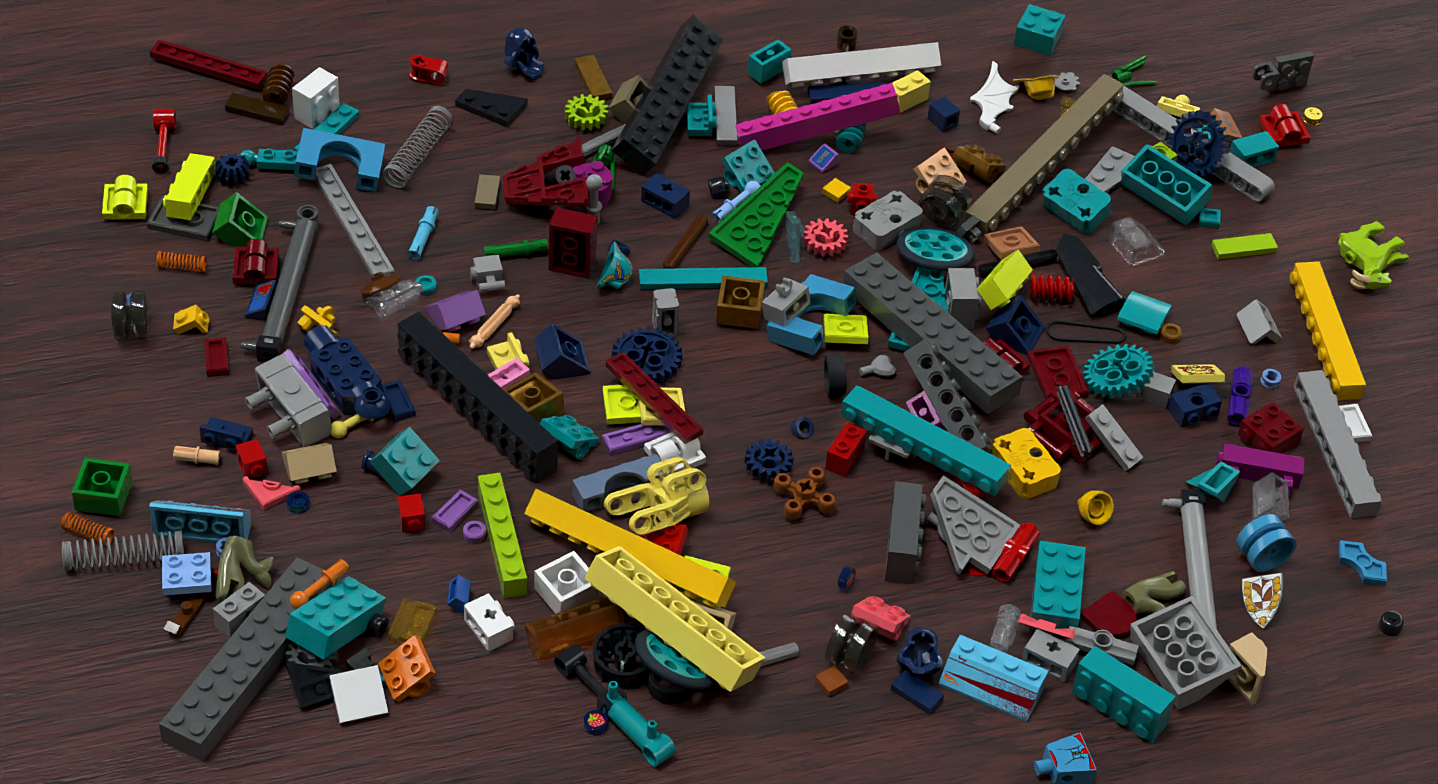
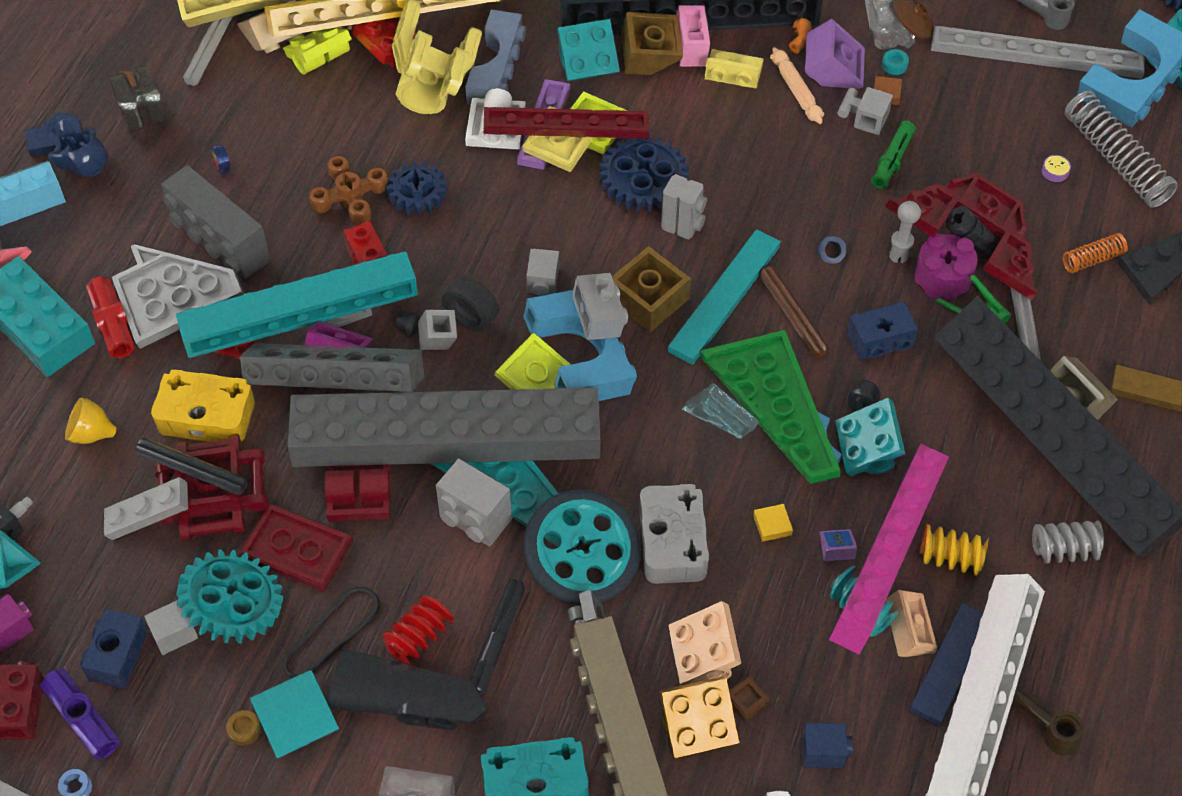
camera: 130 degrees right, 10 degrees up
(425, 227) = (983, 98): medium azure pin -> none
(455, 175) = (1056, 168): none -> tile
(457, 277) = (890, 86): none -> dark orange tile
(487, 192) = (1010, 180): dark tan tile -> none
(500, 125) = (1113, 245): none -> orange piece
(561, 353) = (702, 107): dark blue slope -> none
(572, 243) = (843, 171): dark red brick -> none
(586, 112) = (1087, 338): lime gear -> none
(616, 269) = (791, 215): teal hat -> none
(700, 118) = (1001, 451): teal bracket -> none
(726, 115) = (997, 490): light grey tile -> none
(729, 206) = (819, 386): light blue pin -> none
(735, 71) = (1068, 540): none -> light grey piece
(768, 61) = (1063, 587): teal brick -> none
(772, 362) = (542, 272): none -> light grey brick
(805, 422) = (445, 254): dark blue piece -> none
(825, 237) = (694, 447): coral gear -> none
(861, 196) = (728, 525): red brick -> none
(868, 377) = (437, 329): none -> light grey brick
(880, 366) = (458, 374): light grey rock -> none
(887, 618) = (150, 150): coral plate -> none
(912, 90) = (897, 728): light yellow brick -> none
(945, 201) = (642, 598): clear smoke wheel -> none
(1005, 280) = (455, 559): neon yellow brick -> none
(1006, 623) = (44, 248): clear axle -> none
(1011, 240) = (530, 649): nougat tile -> none
(1016, 325) = (395, 546): dark blue slope -> none
(1198, 373) = (148, 685): light yellow tile -> none

